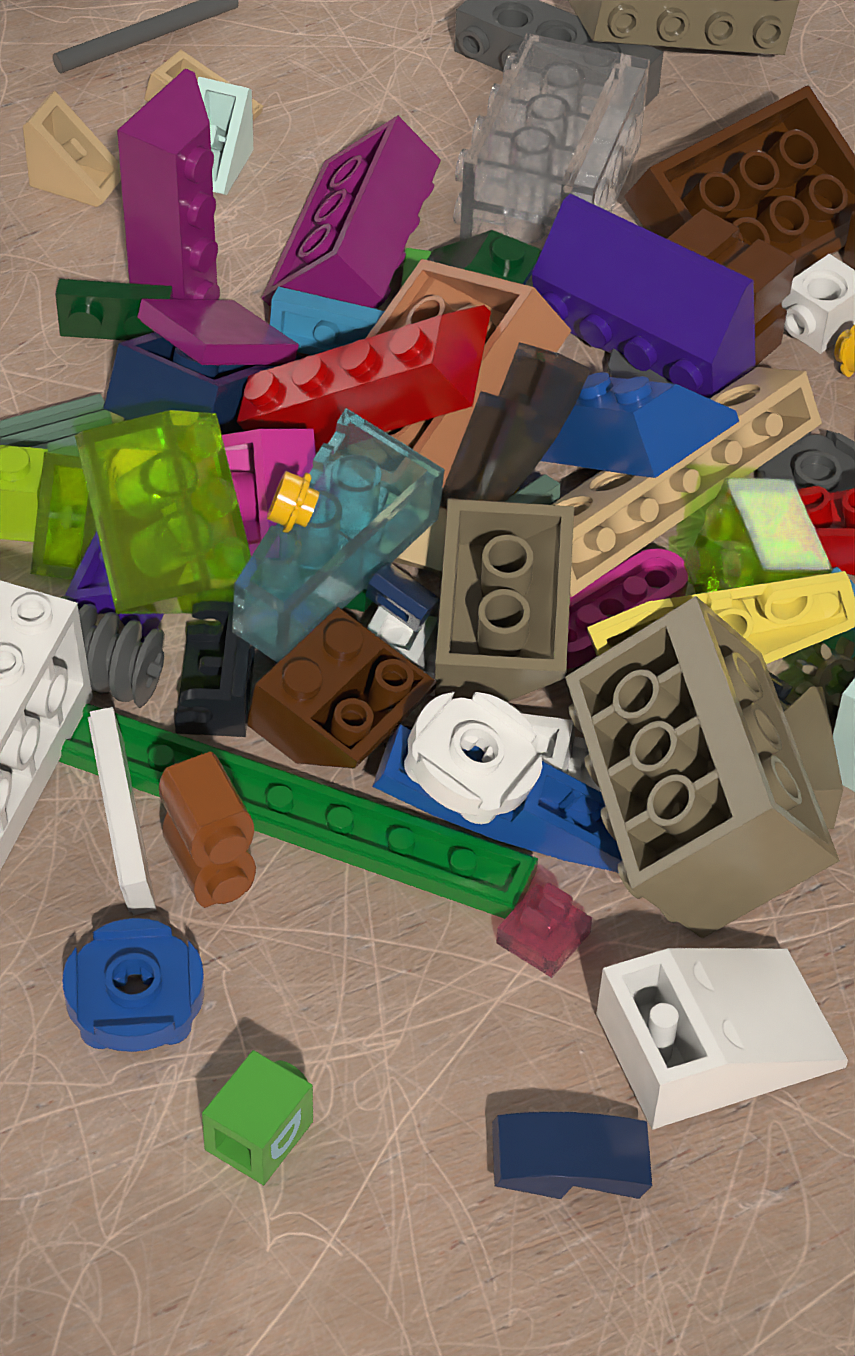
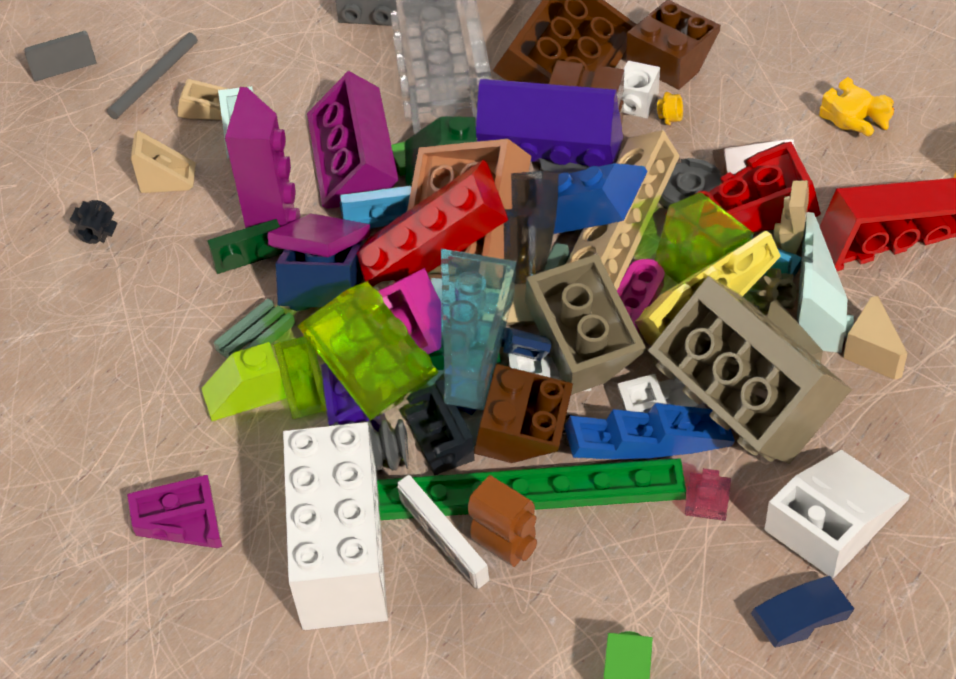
camera: 20 degrees left, 0 degrees up
(138, 1020) = (515, 650): blue plate -> none
(293, 501) = (451, 313): yellow plate -> none
(459, 782) = (611, 428): white plate -> none

